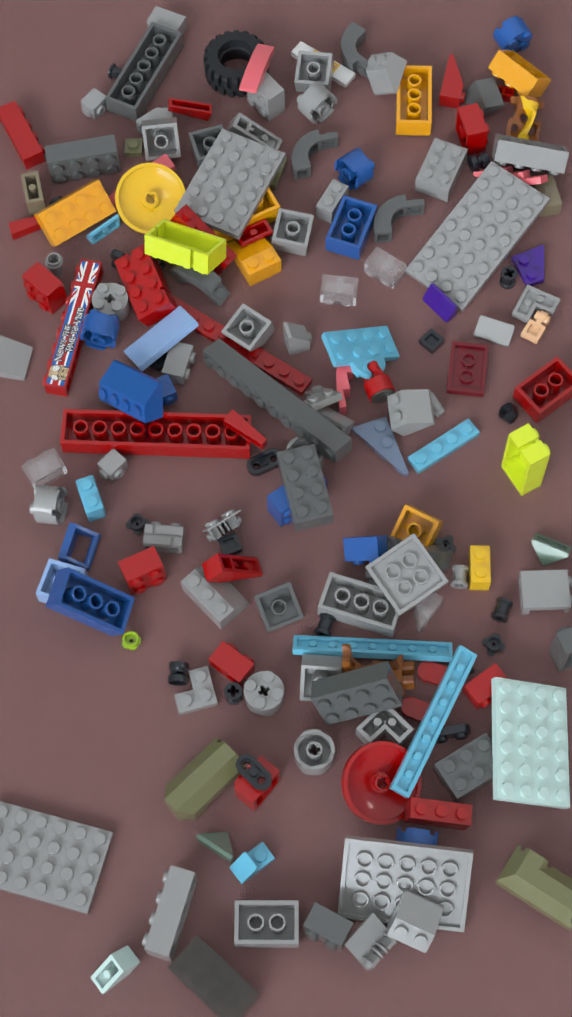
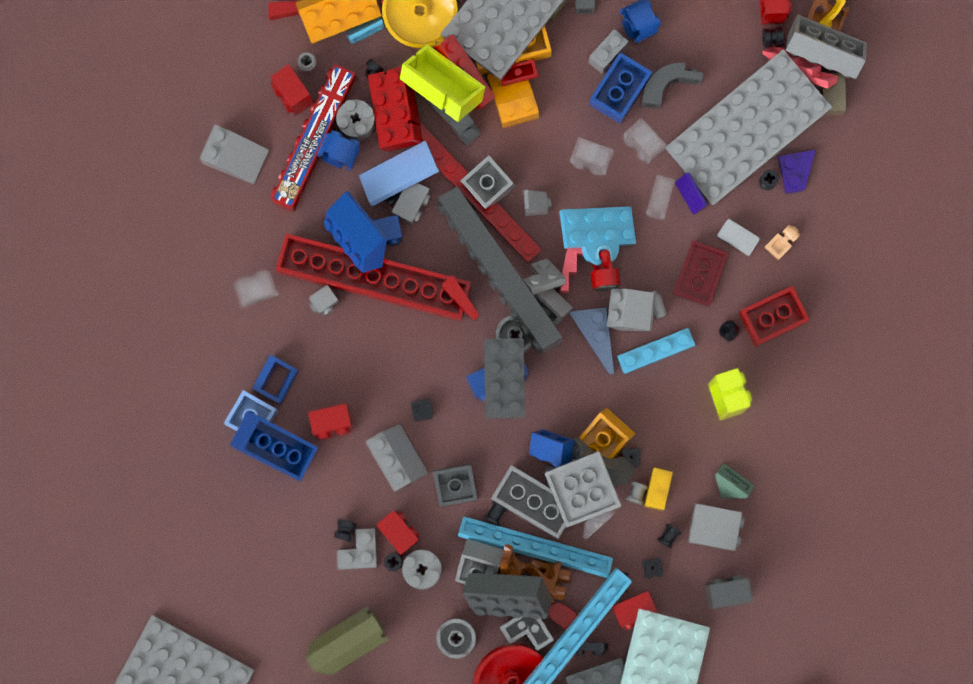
camera: 15 degrees right, 15 degrees up
(49, 504) = (253, 330): light grey brick -> none
(91, 498) = (295, 331): medium azure brick -> none
(131, 645) = (312, 486): lime plate -> none
(137, 518) = (331, 366): black plate -> none
(164, 537) = (359, 388): light grey brick -> none
(231, 568) = (417, 438): red slope -> none
(232, 521) = (410, 388): light grey hinge -> none
(248, 794) = (396, 656): red brick -> none
(254, 772) = (393, 653): black plate -> none
(263, 461) = (474, 329): black plate -> none
(292, 232) = (558, 80): light grey brick -> none
(412, 311) = (660, 197): none -> clear brick
(431, 341) = (672, 234): black plate -> none
(431, 672) = (587, 583): red tile -> none
(441, 169) = (730, 39): light grey brick -> none
(532, 300) = (790, 211): light grey plate -> none

